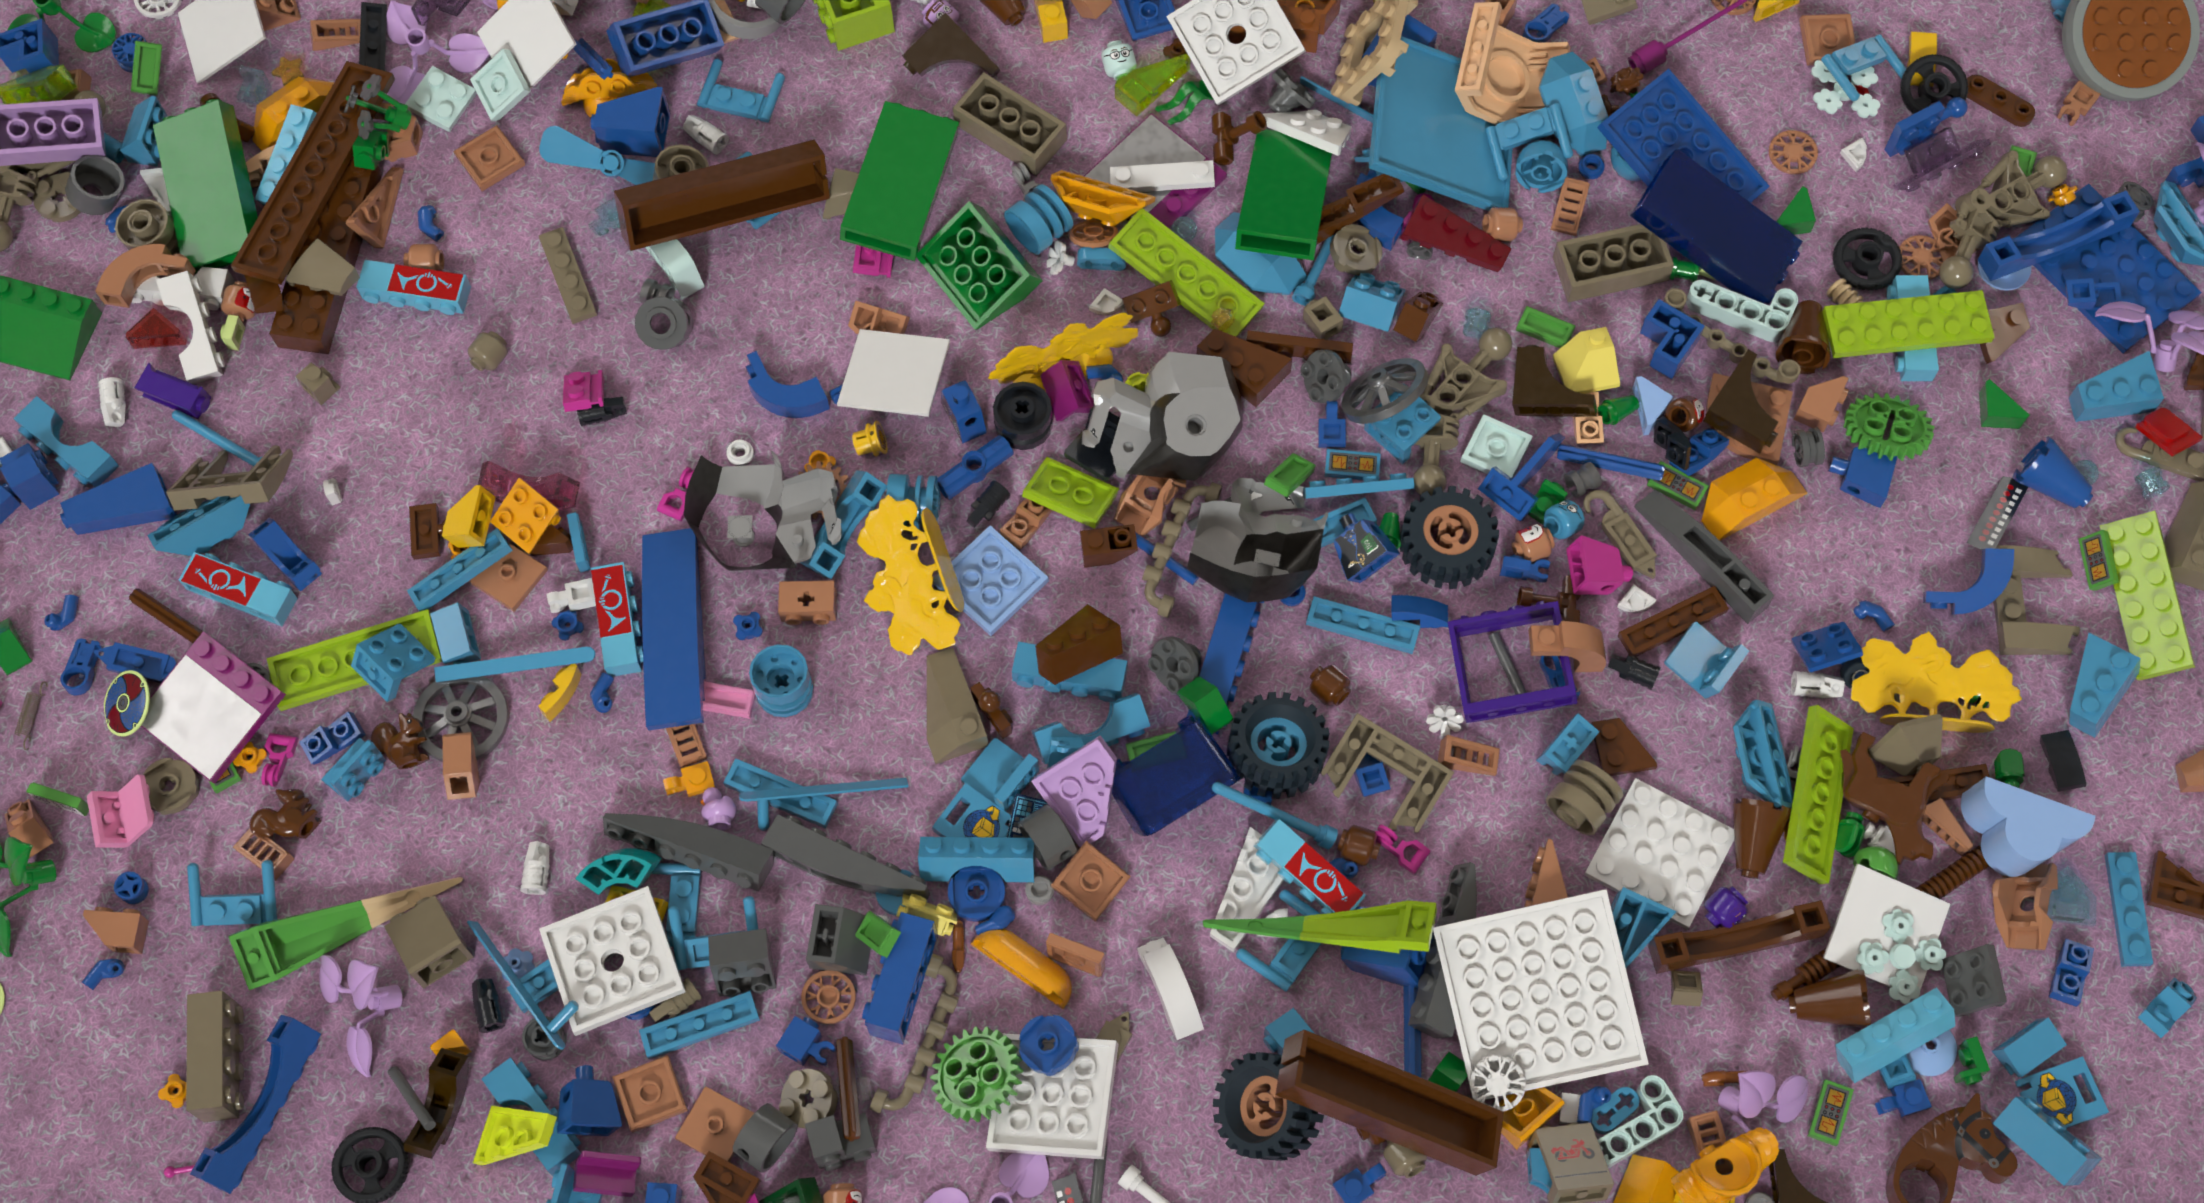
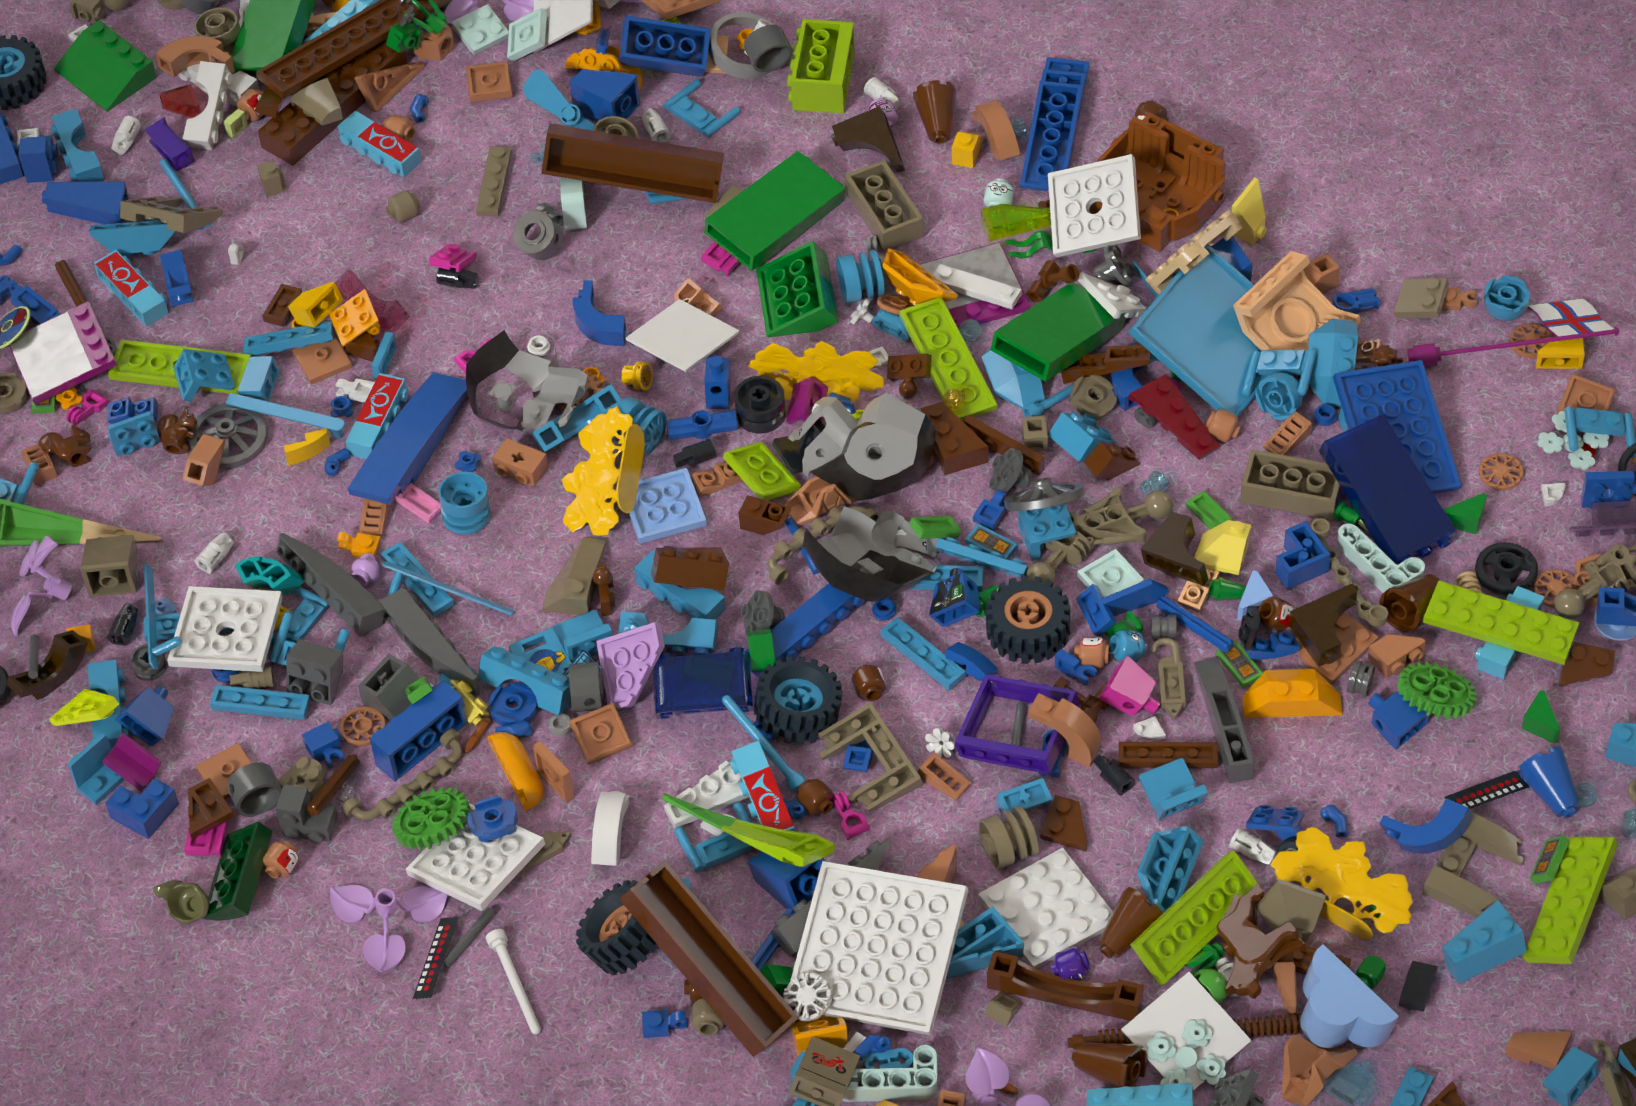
camera: 30 degrees right, 15 degrees down
(649, 1093) = (196, 730): nougat plate -> none

